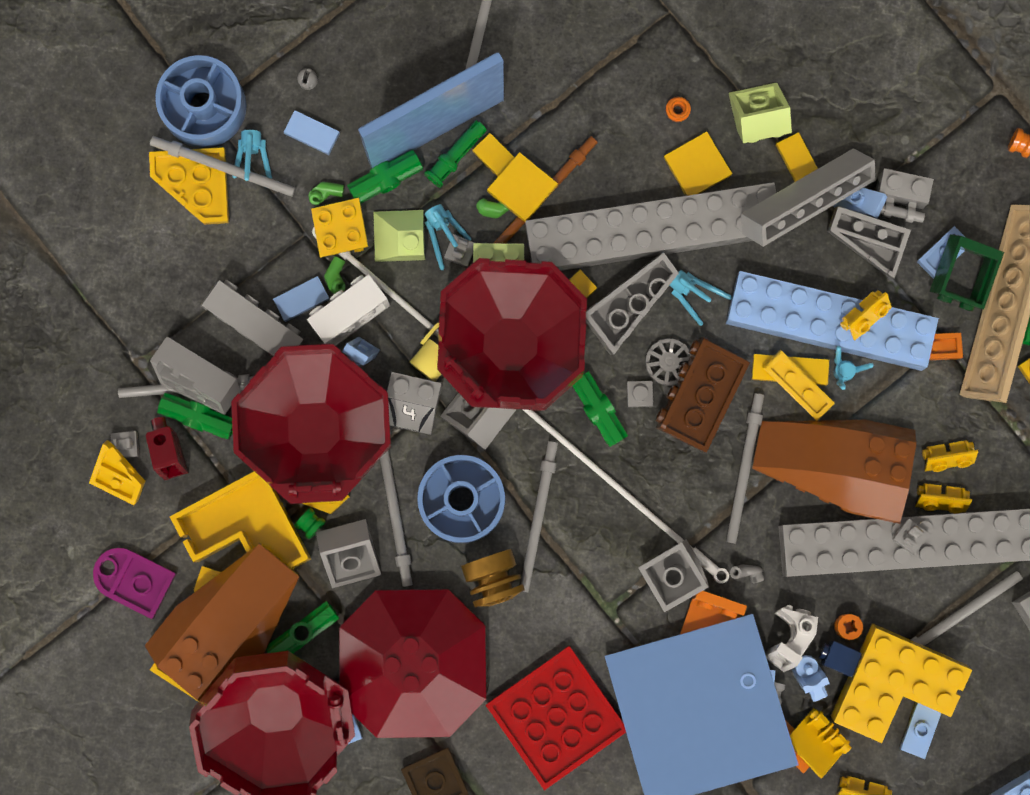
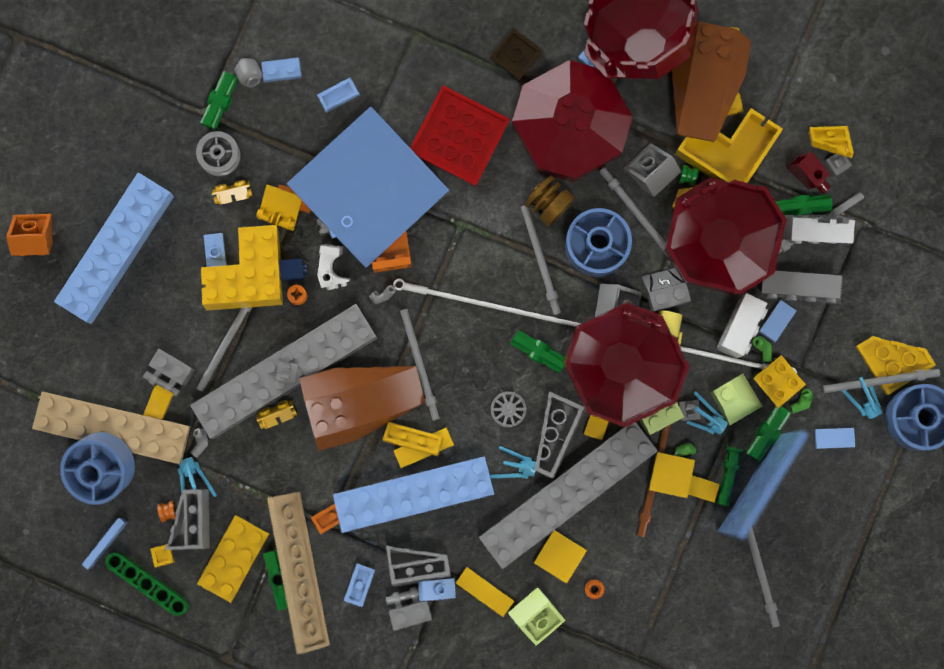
camera: 150 degrees right, 0 degrees up
(135, 581) = (781, 80): magenta tile -> none
(312, 79) = (855, 474): light grey hinge -> none
(315, 622) = (649, 113): green piece -> none
(360, 351) = (719, 304): light blue plate -> none
(639, 394) = (516, 377): light grey plate -> none
(674, 575) = (431, 265): light grey slope -> none
(701, 394) = (475, 397): reddish brown bracket -> none
(808, 197) = (474, 569): light grey brick -> none
(811, 678) = (305, 246): light blue hips -> none
(845, 369) = (386, 465): medium azure plant -> none
(875, 307) = (395, 498): yellow hinge -> none
(961, 455) = (279, 449): yellow hinge -> none
(985, 278) = (322, 578): dark green window -> none

